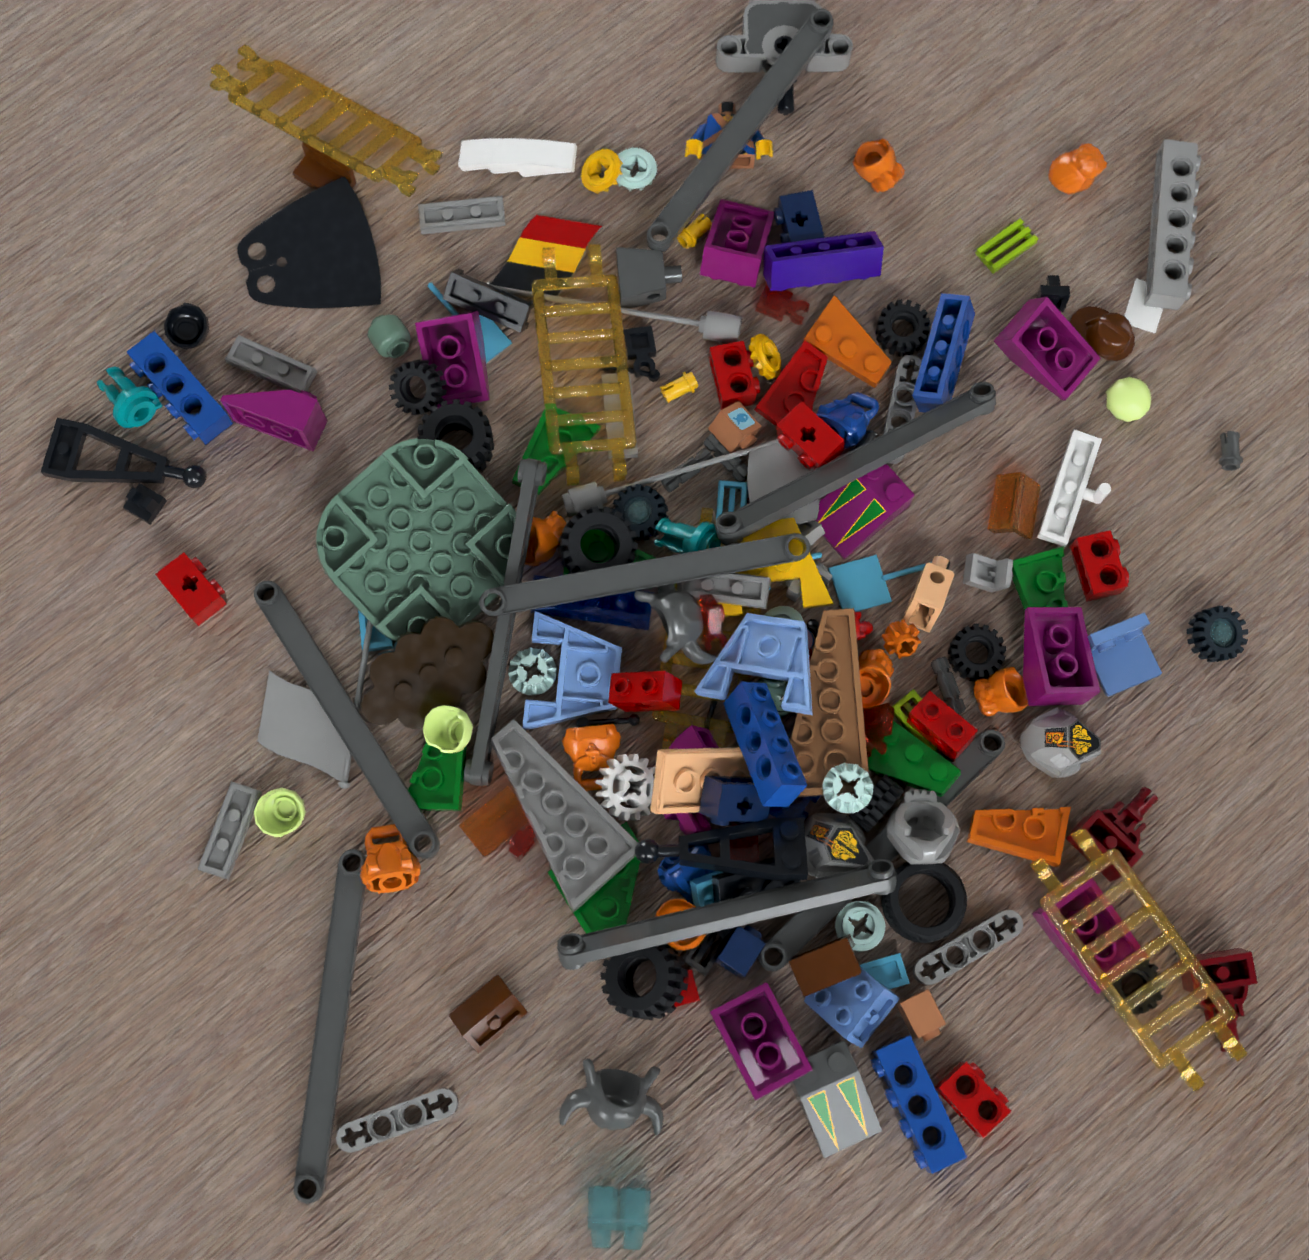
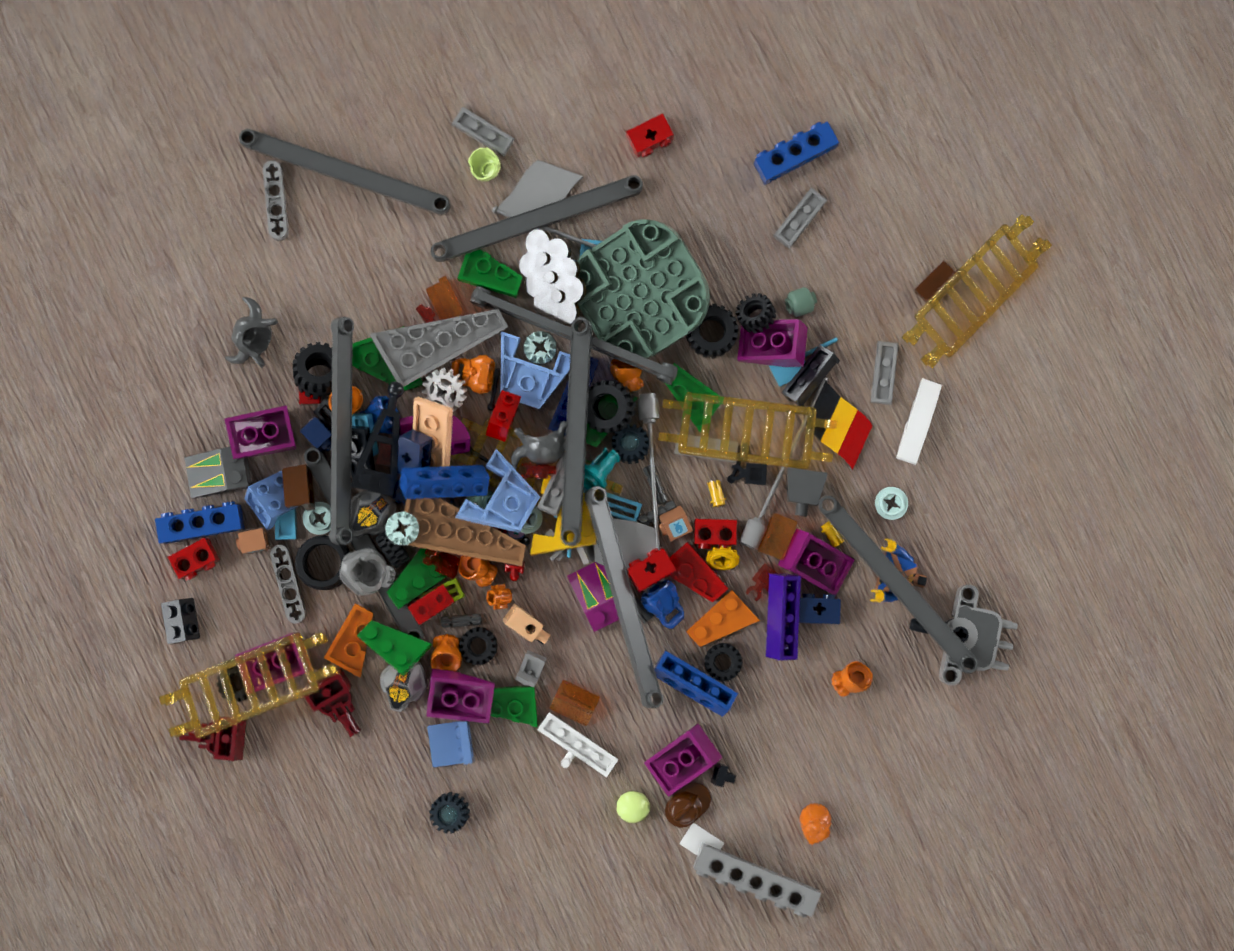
camera: 110 degrees right, 10 degrees up
(66, 448) = (770, 70): black plate -> none
(134, 404) = (789, 119): teal piece -> none
(144, 503) = (719, 115): black tile -> none
(186, 326) = (839, 165): black hair -> none
(280, 414) = (752, 223): magenta slope -> none
(326, 252) = (879, 272): black piece -> none
(390, 864) = (434, 226): orange piece -> none
(447, 729) = (508, 281): yellowish green hair -> none
(487, 1014) = (325, 269): reddish brown panel -> none
(593, 168) = (900, 475): yellow gear -> none
(603, 1215) = (184, 312): clear light blue hips -> none
(716, 294) = (777, 536): none -> clear orange panel
(862, 583) = (546, 583): medium azure piece -> none
(896, 407) = (666, 641): light grey beam -> none
(1016, 763) = (394, 647): none -> green wing
(1023, 233) = (776, 772): lime tile -> none
(1069, 1096) = (180, 620): none -> black bracket
(1091, 566) = (517, 741): red brick -> none
(1230, 451) = (577, 866): dark grey pin -> none

